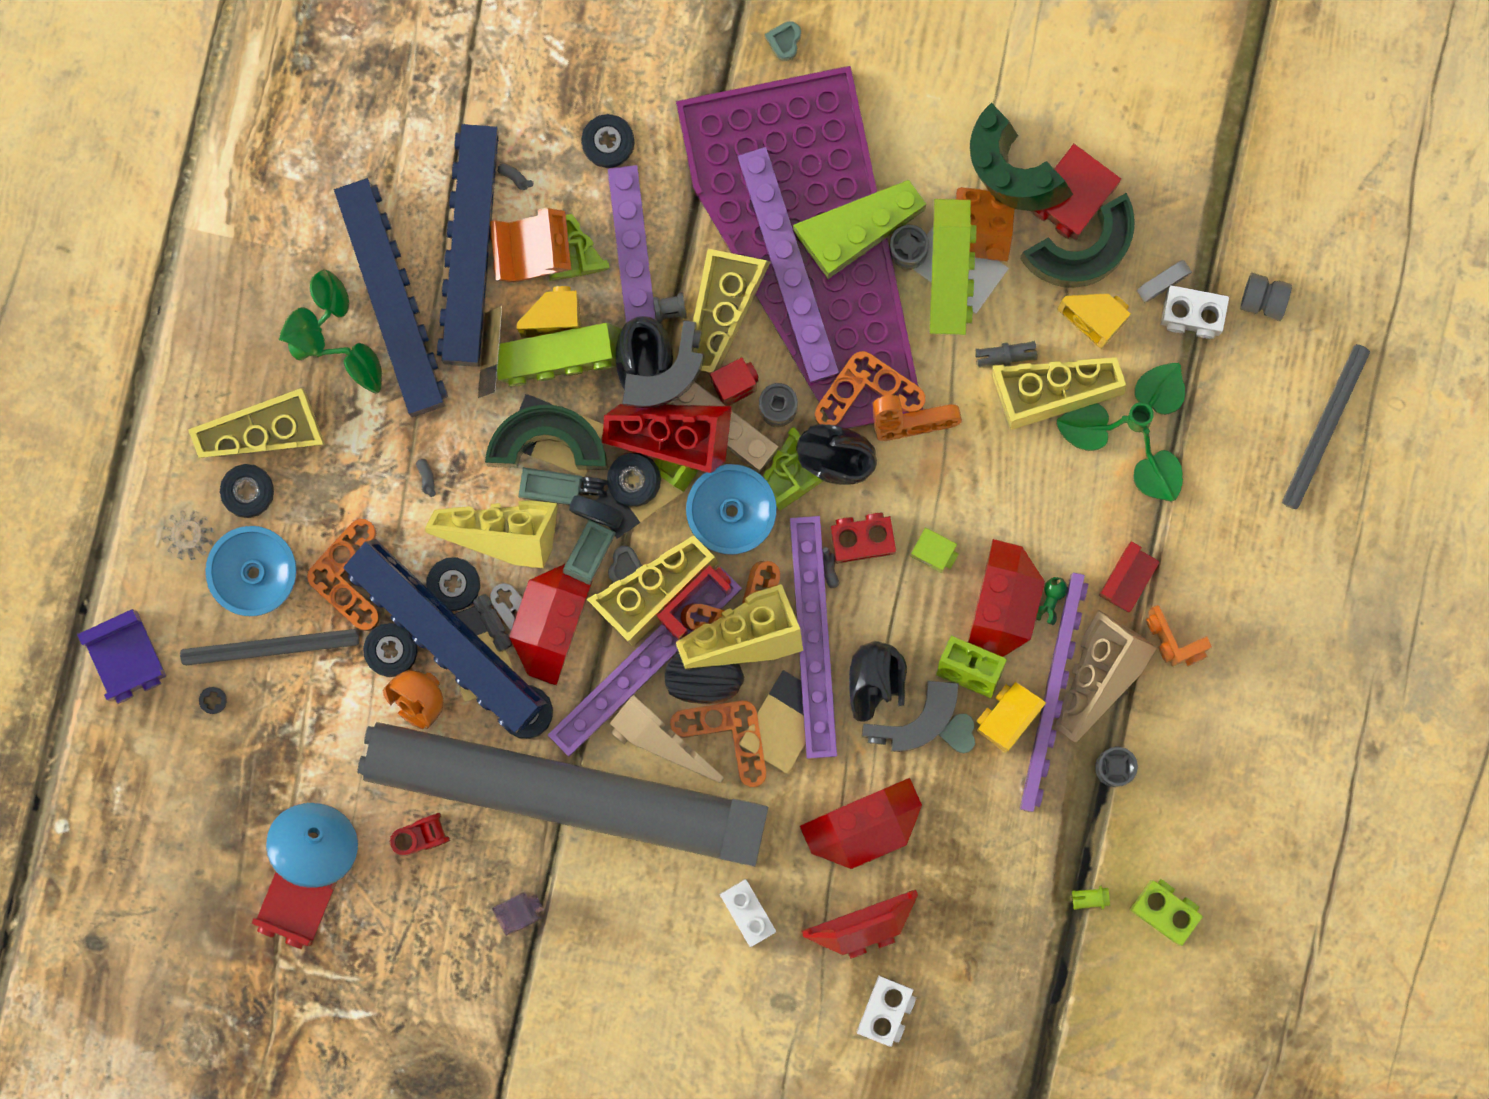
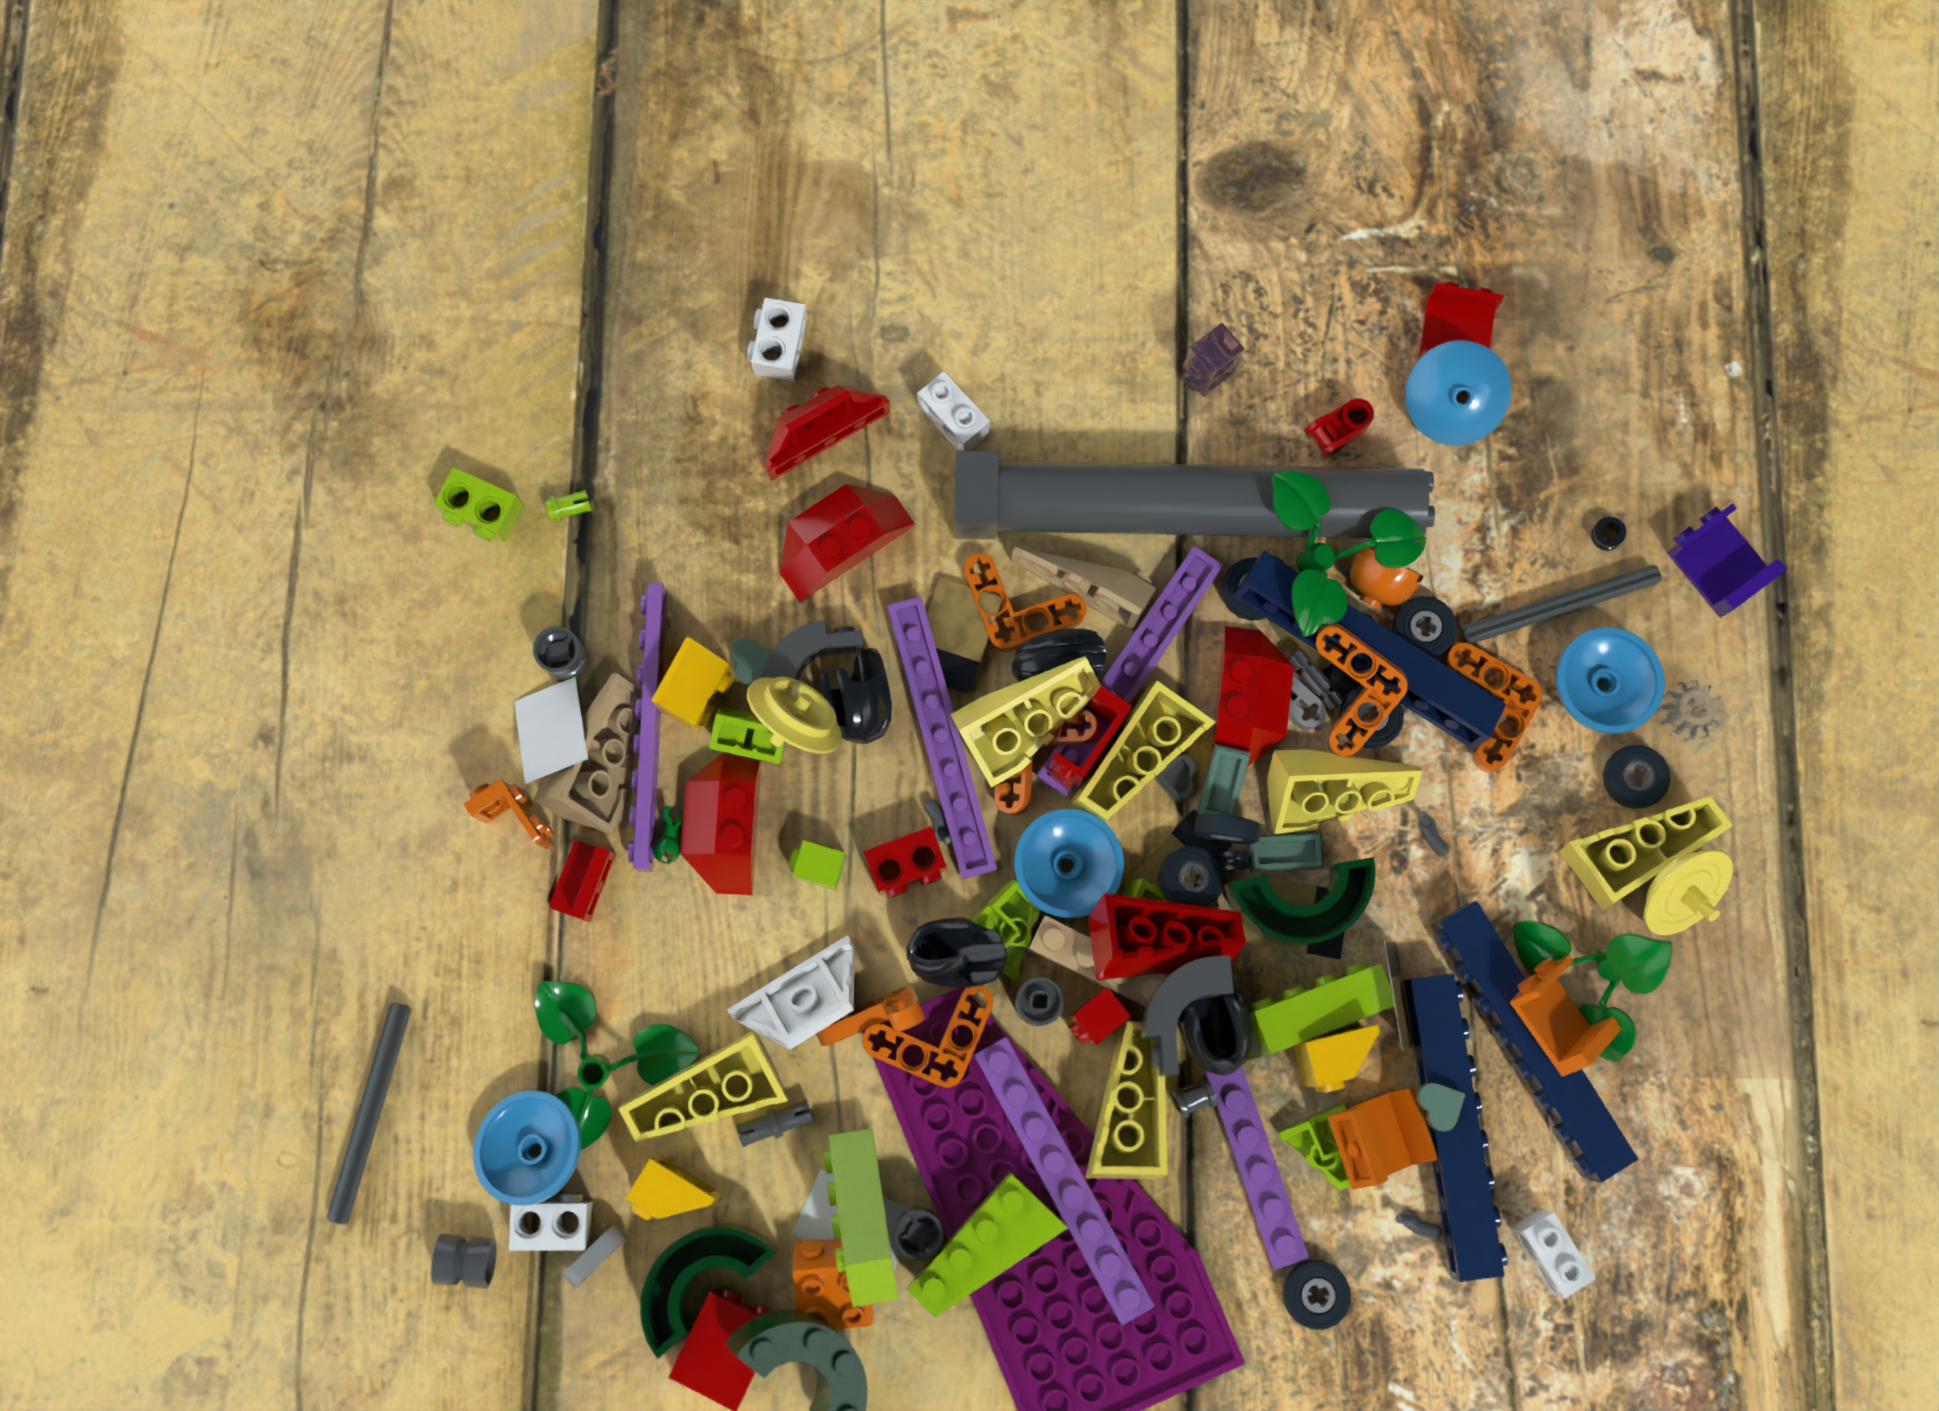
camera: 160 degrees right, 5 degrees down
(237, 386) = (1687, 891): none -> light yellow piece
(368, 306) = (1557, 1020): none -> orange panel
(417, 134) = (1552, 1253): none -> white brick
(452, 597) = (1373, 690): none -> orange beam
(478, 761) = (1319, 600): none -> green plant
(479, 260) = (1441, 1105): none -> sand green tile
(931, 666) = (794, 714): none -> light yellow piece
(966, 445) = (802, 998): none -> white wing
(1134, 703) = (550, 730): none -> white sticker
(1221, 374) = (508, 1142): none -> dark azure dish

